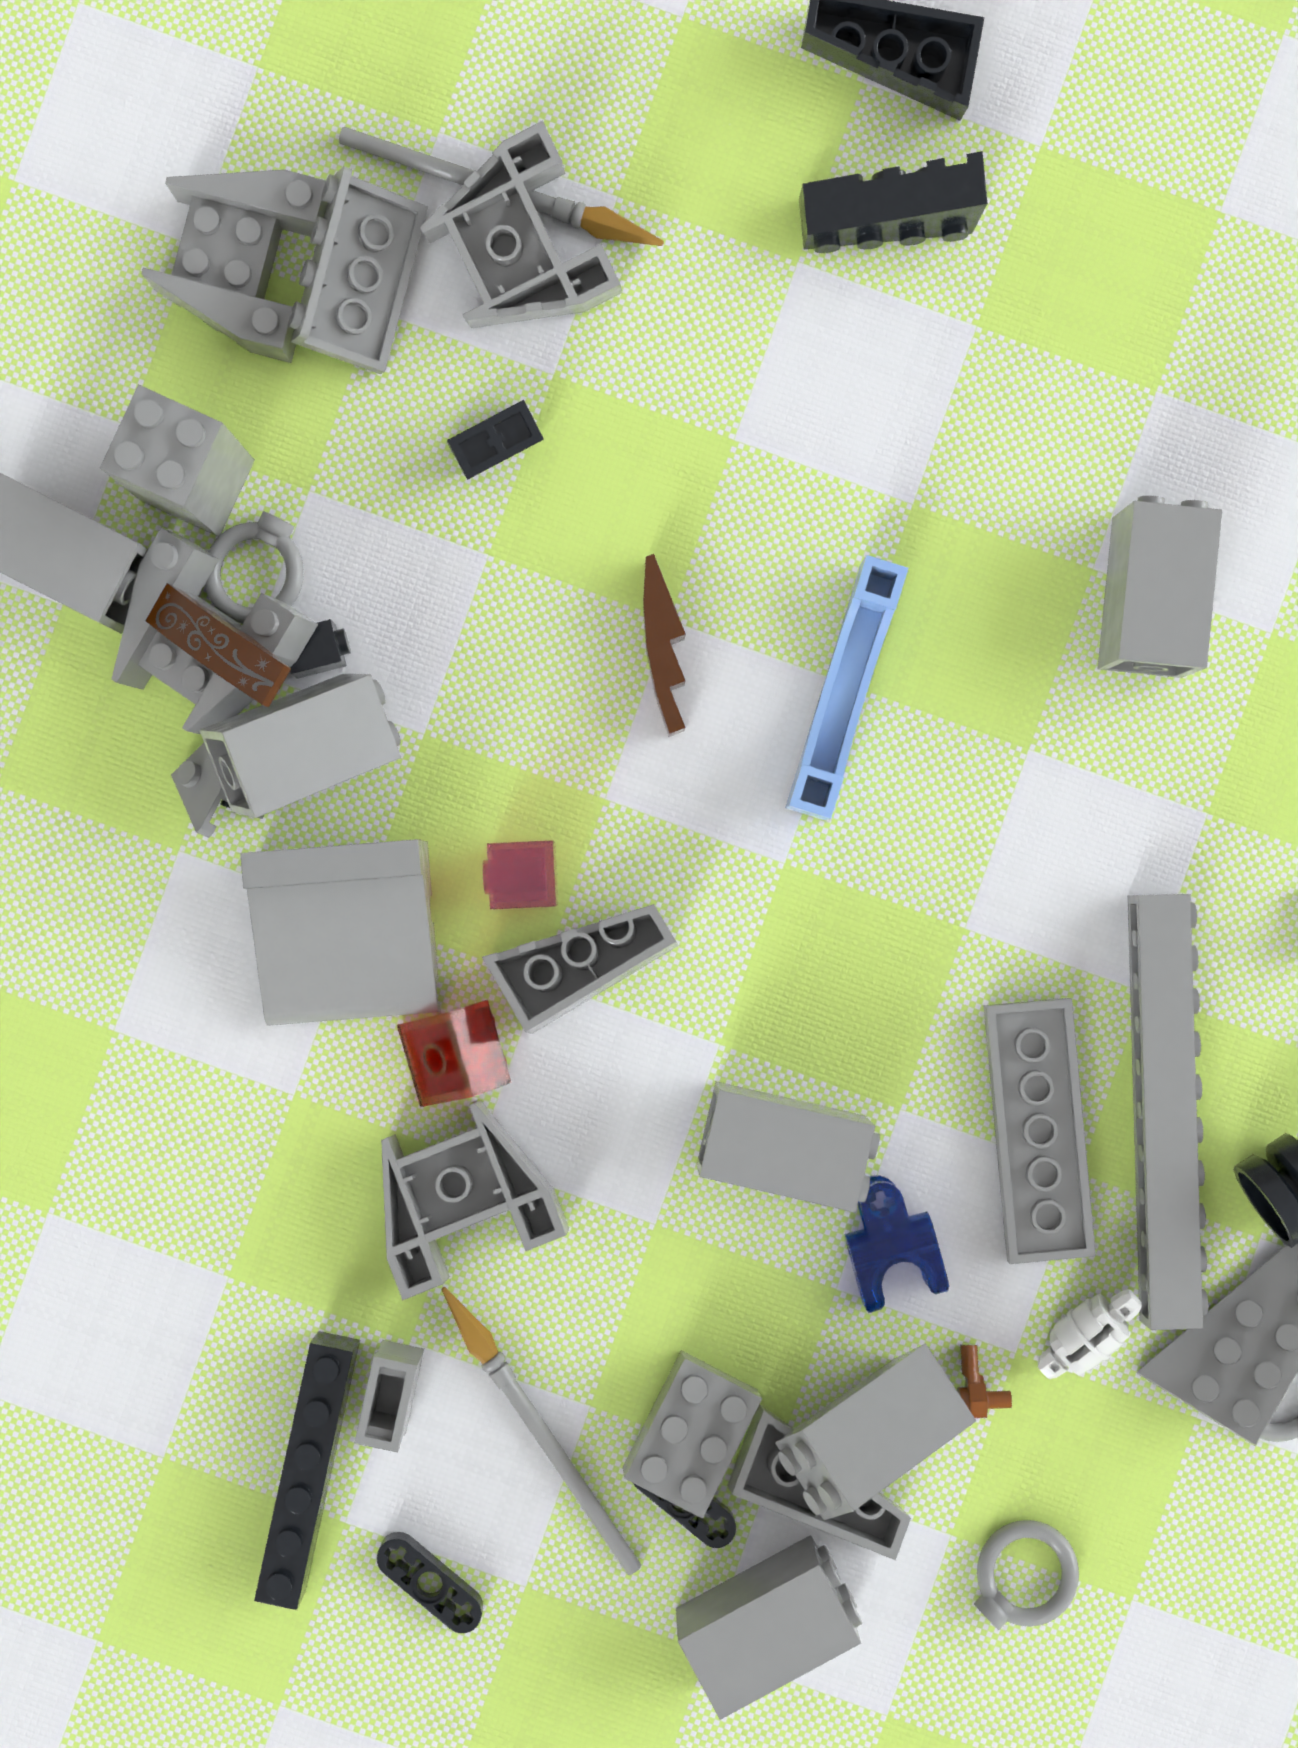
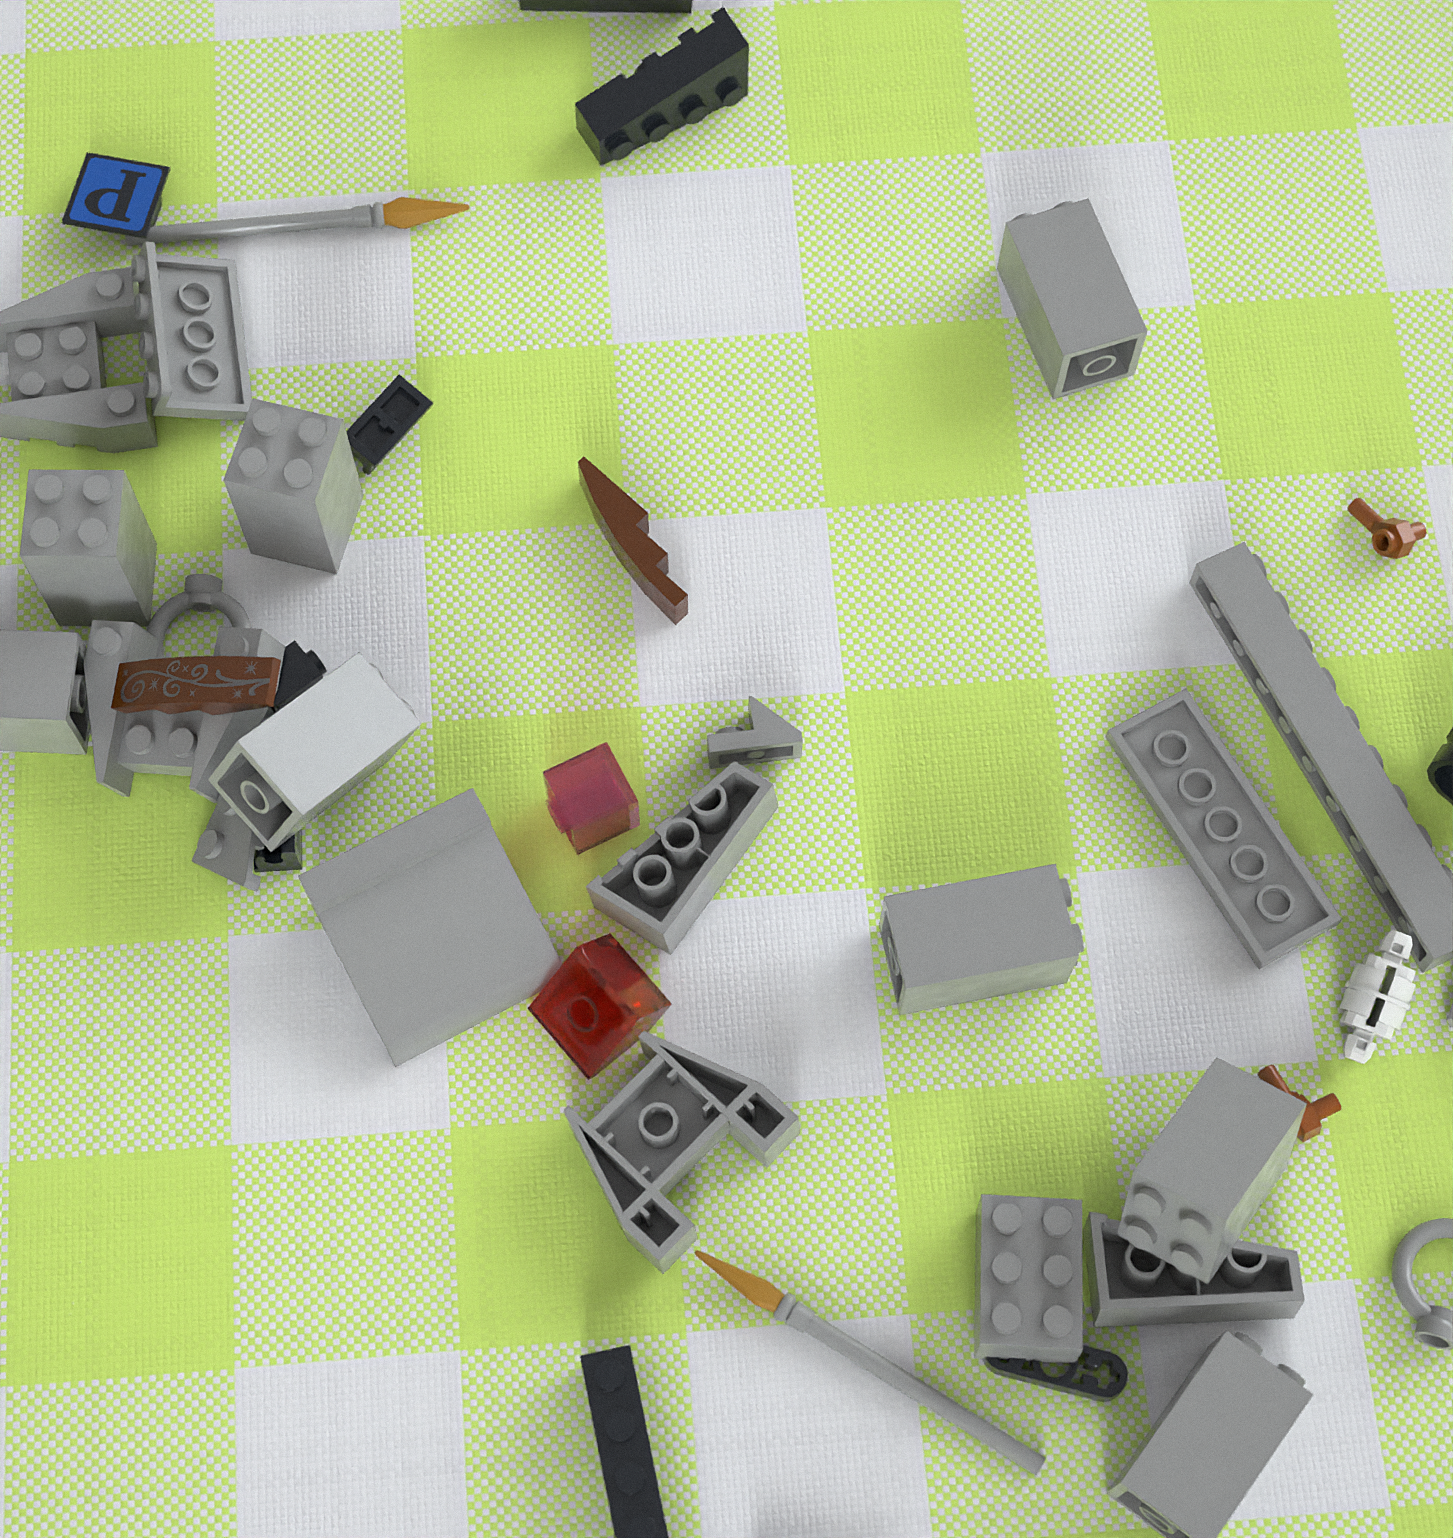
camera: 25 degrees left, 20 degrees down
(346, 90) = (116, 195): none -> piece
(381, 479) = (294, 485): none -> light grey brick
(389, 1396) = (690, 1377): light grey hips -> none
(508, 244) = (332, 258): light grey wedge -> none
(697, 881) = (767, 741): none -> light grey slope
(845, 687) = (823, 503): light blue arch -> none
(891, 1239) = (1130, 990): clear blue piece -> none

